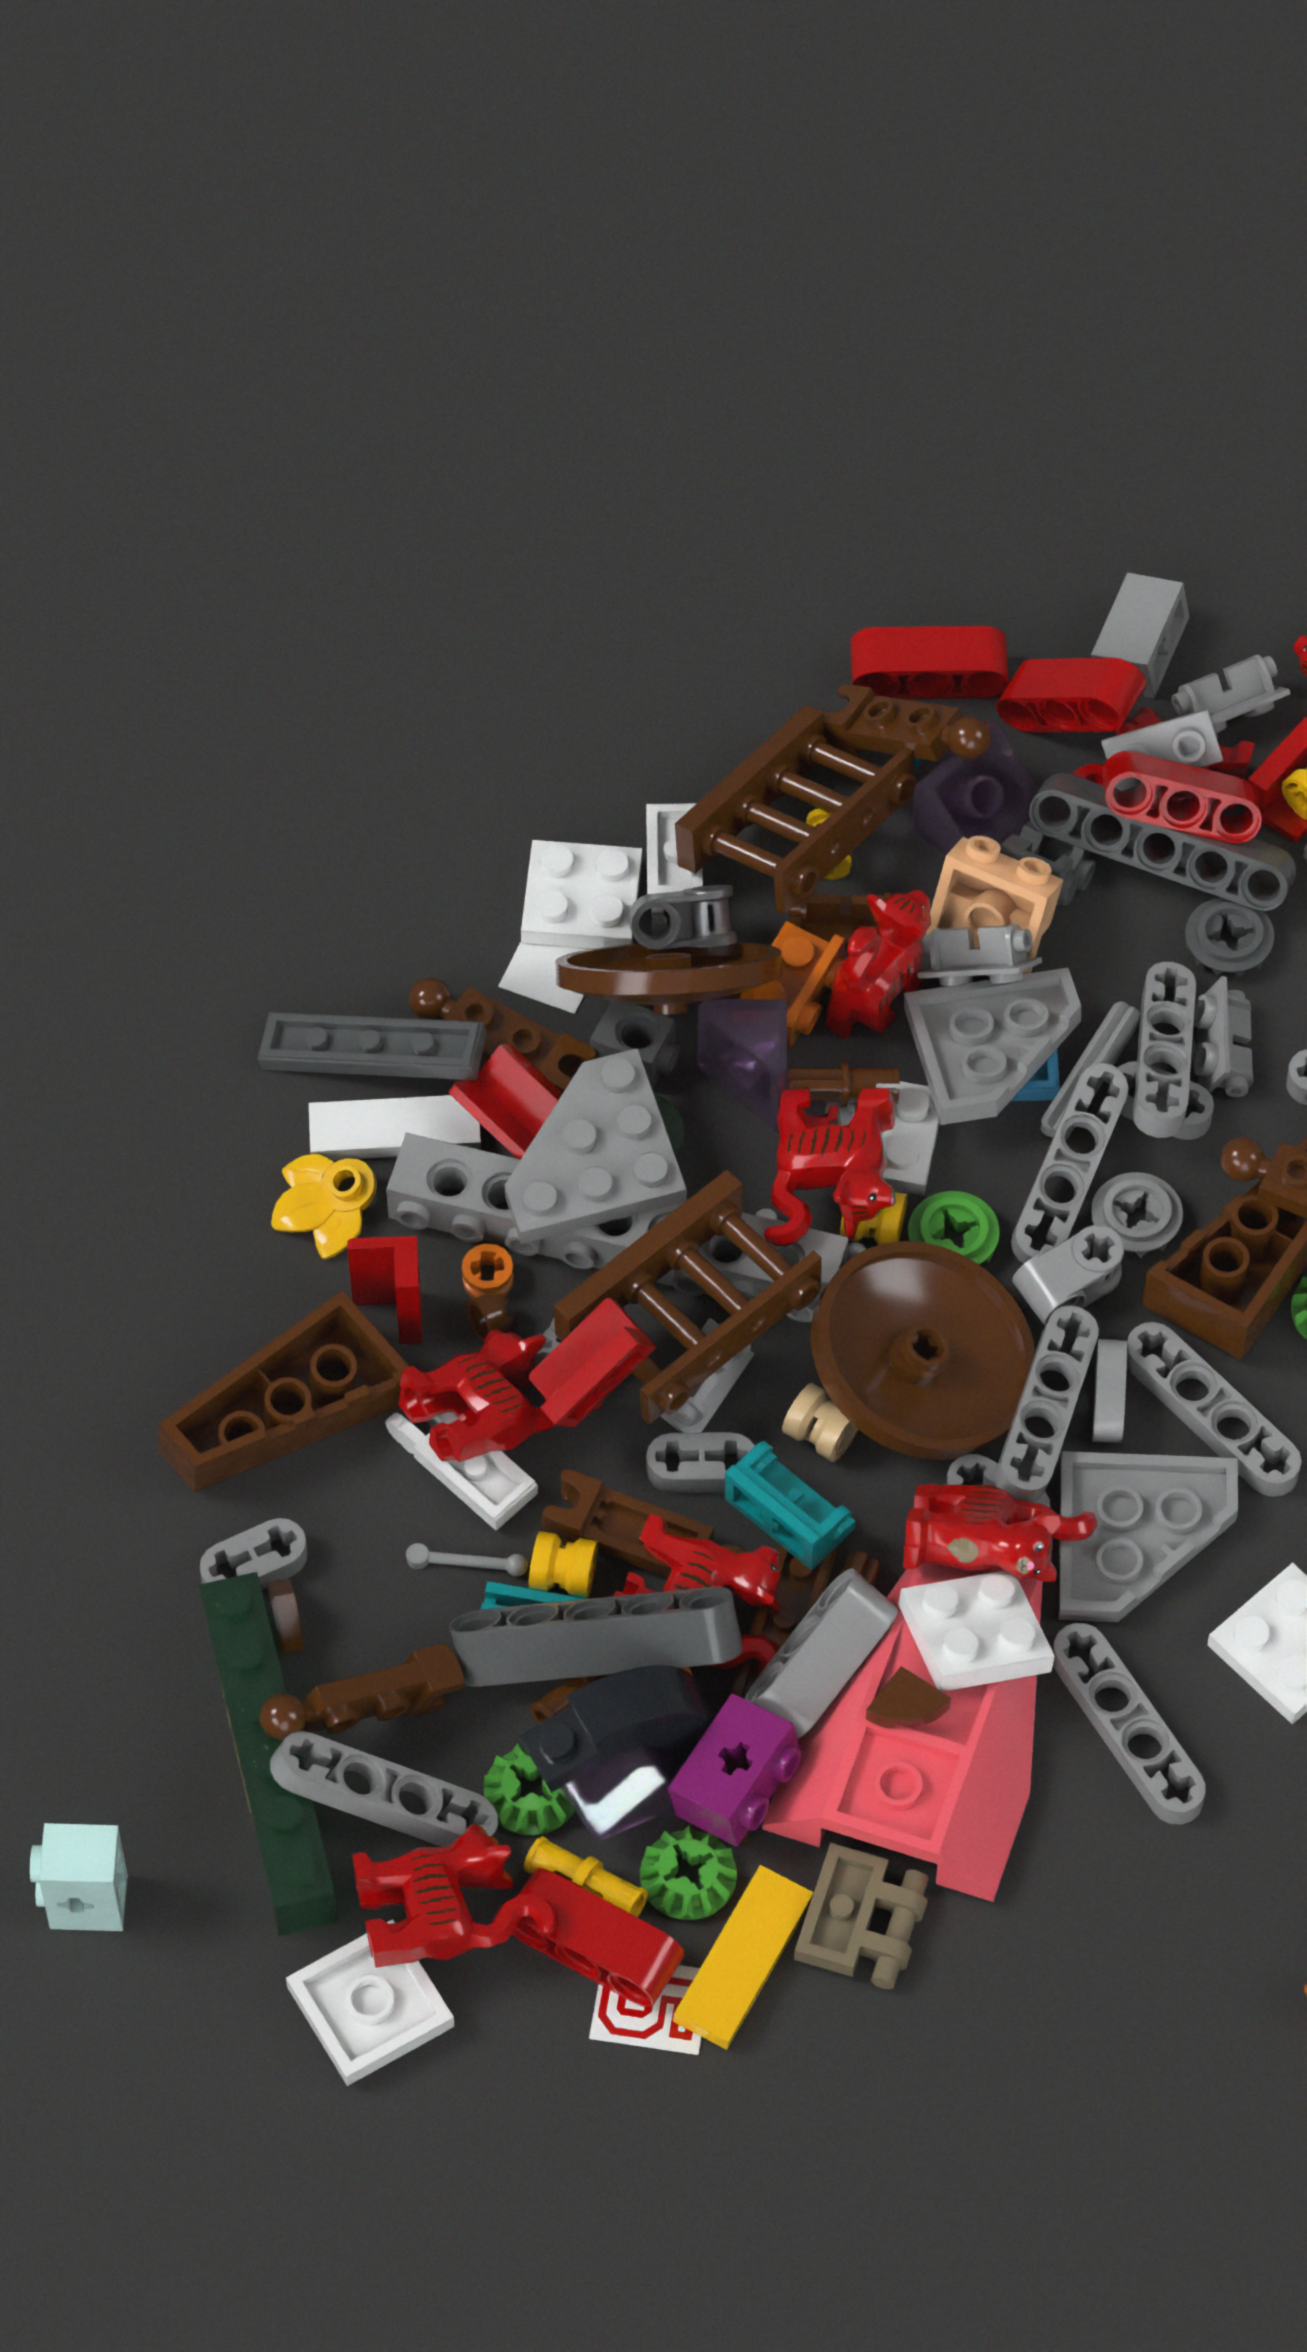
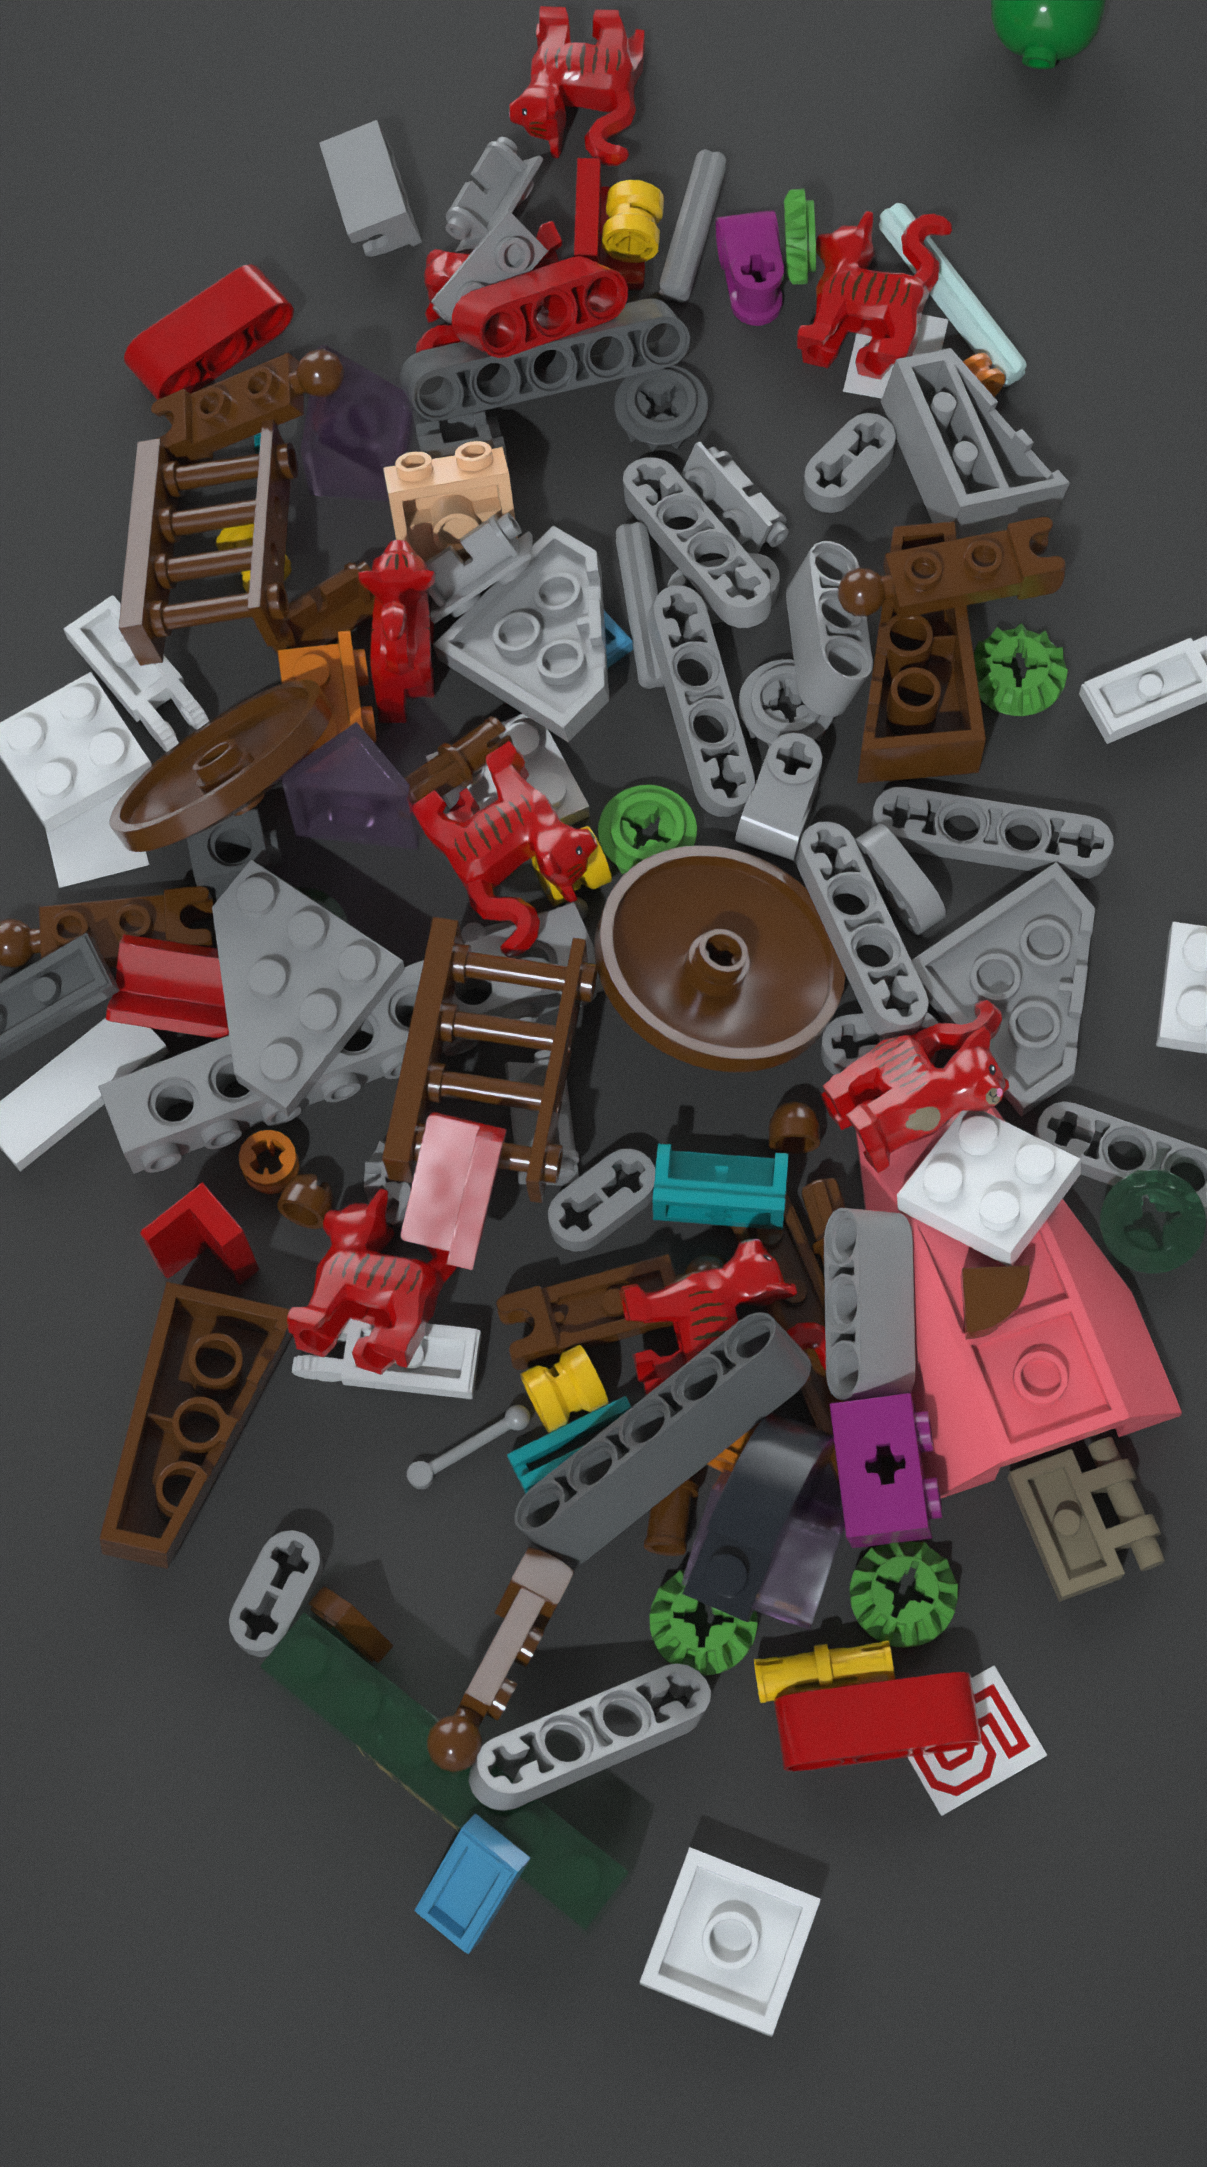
camera: 35 degrees left, 10 degrees up
(80, 1876) = (376, 2041): light aqua brick -> none
(224, 1828) = (472, 1883): none -> dark azure tile
(320, 1206) = (62, 1210): yellow plate -> none
(436, 1912) = (725, 1809): red animal -> none
(688, 918) = (197, 701): flat silver piece -> none
(743, 1957) = (1016, 1635): yellow tile -> none
(820, 1422) = (679, 1088): tan wheel -> none
(880, 1510) = (794, 1129): none -> reddish brown hinge
(1071, 695) = (364, 280): red beam -> none
(1075, 1728) = (1137, 1247): none -> clear green gear
(1199, 1182) = (827, 642): none -> light grey beam

